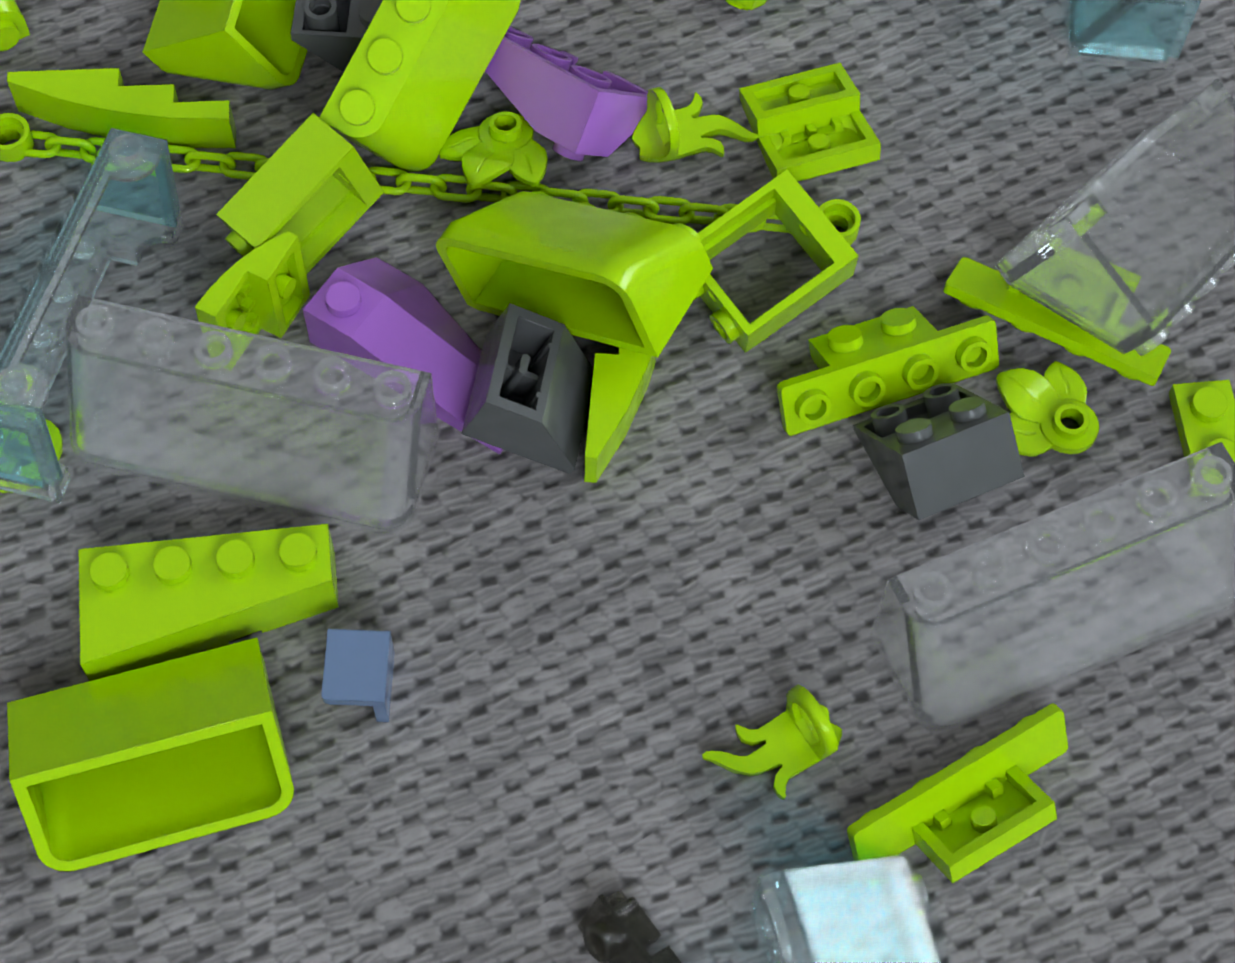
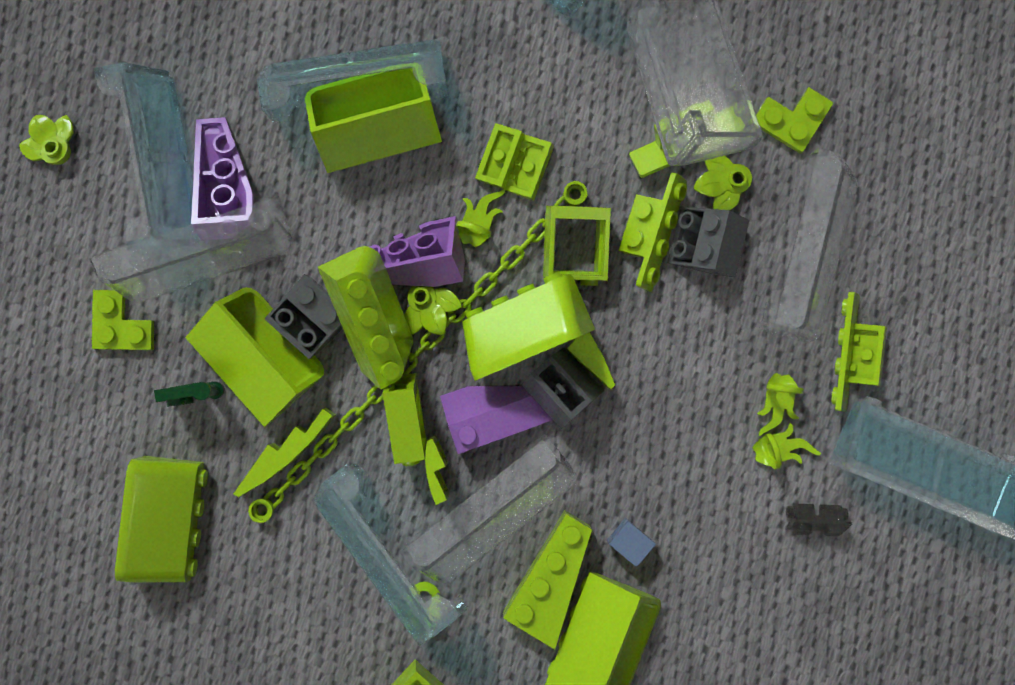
camera: 50 degrees left, 25 degrees up
(707, 802) = (776, 448): none -> lime piece

